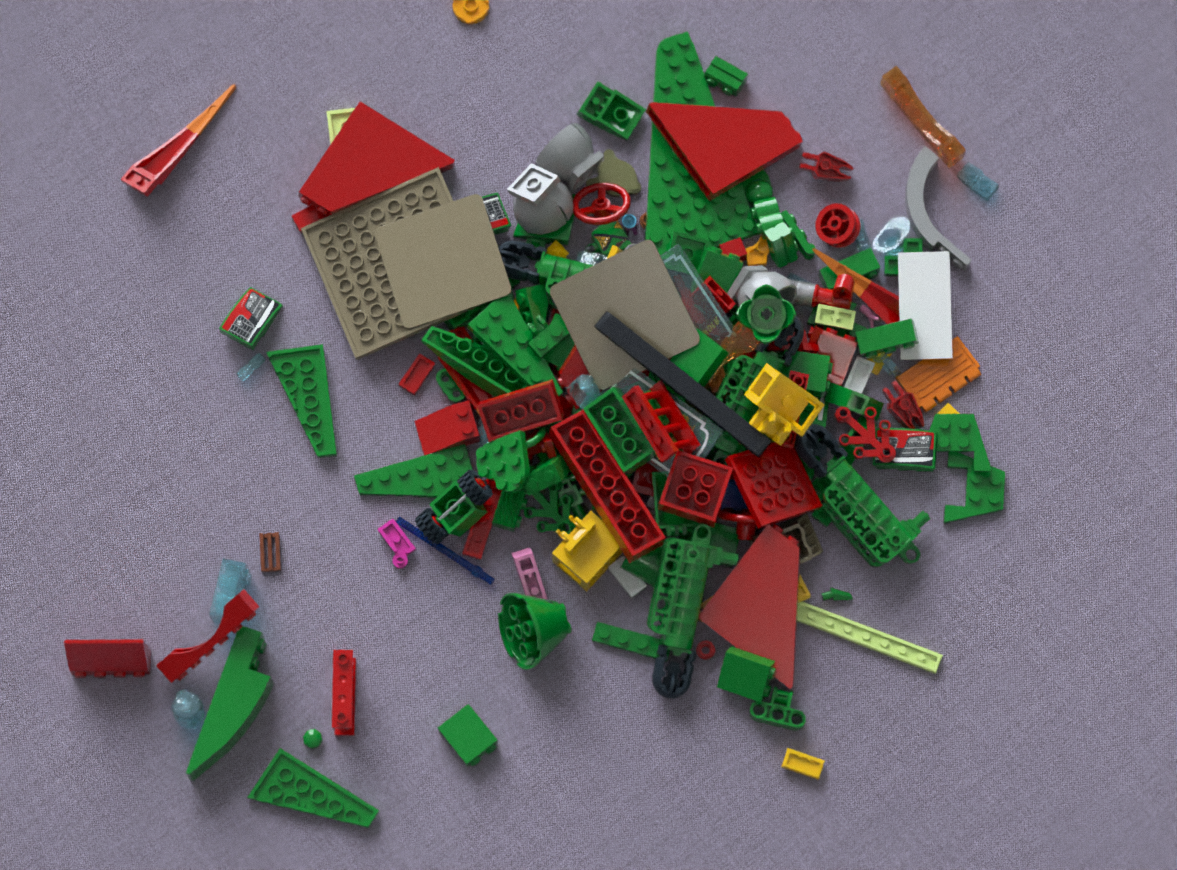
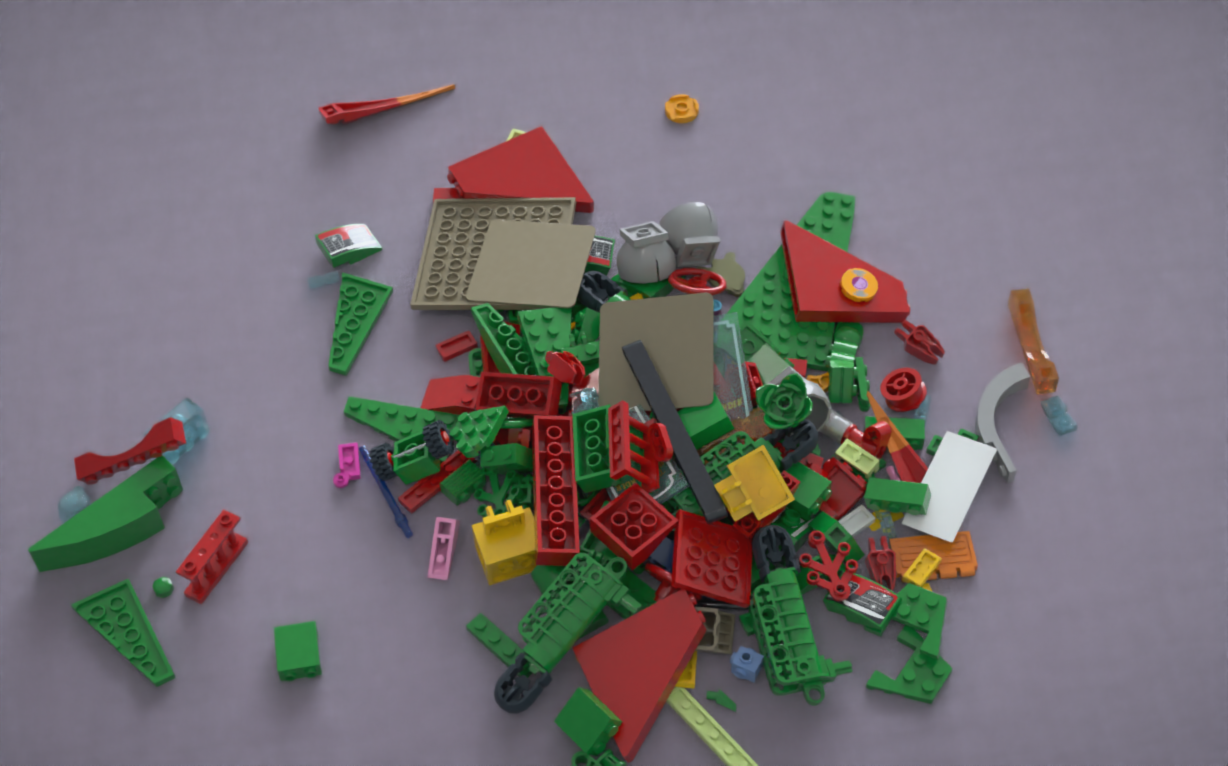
camera: 30 degrees right, 20 degrees down
(108, 657) = (40, 431): red slope -> none
(269, 536) = (234, 421): copper tile -> none
(531, 627) = (417, 582): green cone -> none
(547, 363) = (565, 367): none -> red hinge
(611, 111) = (751, 224): green slope -> none
(630, 583) = (530, 590): white tile -> none
(681, 404) = (660, 442): none -> red plate
(707, 644) = (565, 681): red plate -> none
(725, 76) = (868, 240): green brick -> none
(748, 138) = (859, 285): none -> light orange tile
(842, 548) = (746, 663): none -> medium blue brick
(891, 238) = (950, 421): clear light blue piece -> none
(938, 394) = (922, 568): none -> yellow plate

